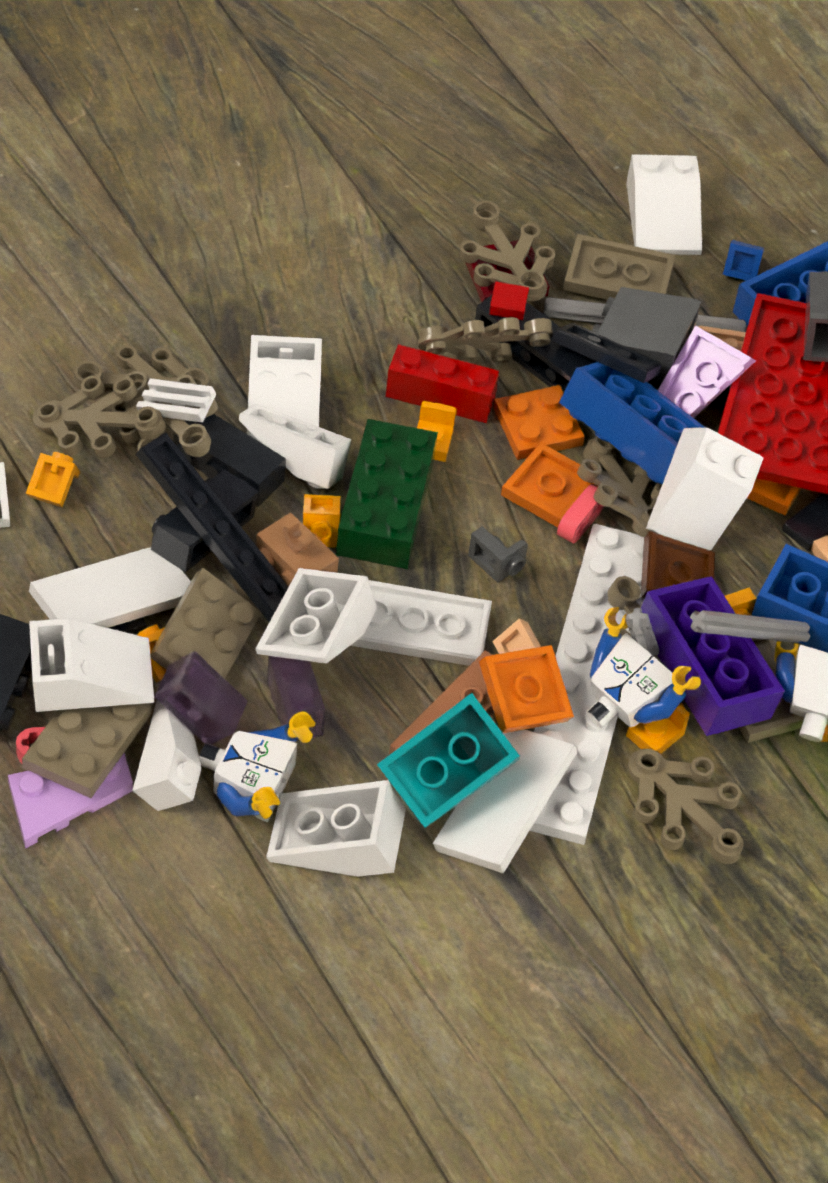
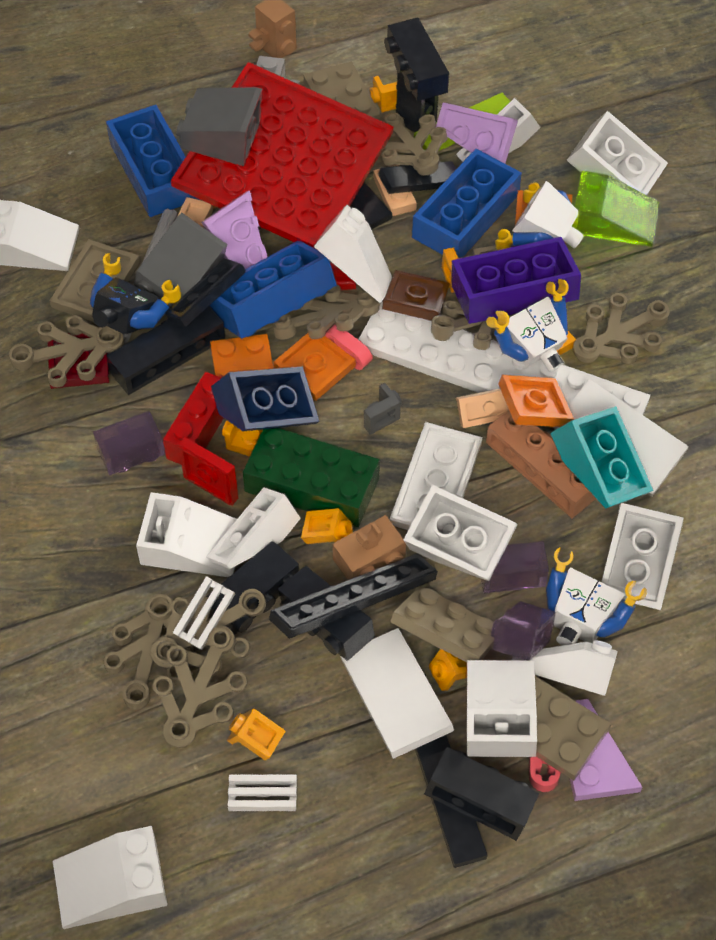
camera: 75 degrees left, 5 degrees up
(366, 392) = (208, 471): none -> red tile
(393, 321) = (129, 443): none -> clear purple brick
(467, 428) = (265, 399): none -> dark blue slope
(473, 333) = (179, 345): dark tan plant -> none
(509, 300) = (129, 352): red tile -> none
(573, 282) = (125, 305): none -> torso
(642, 630) = (507, 305): light grey axle -> none
(743, 260) = (102, 197): blue tile -> none
(749, 626) = (511, 241): light grey axle -> none

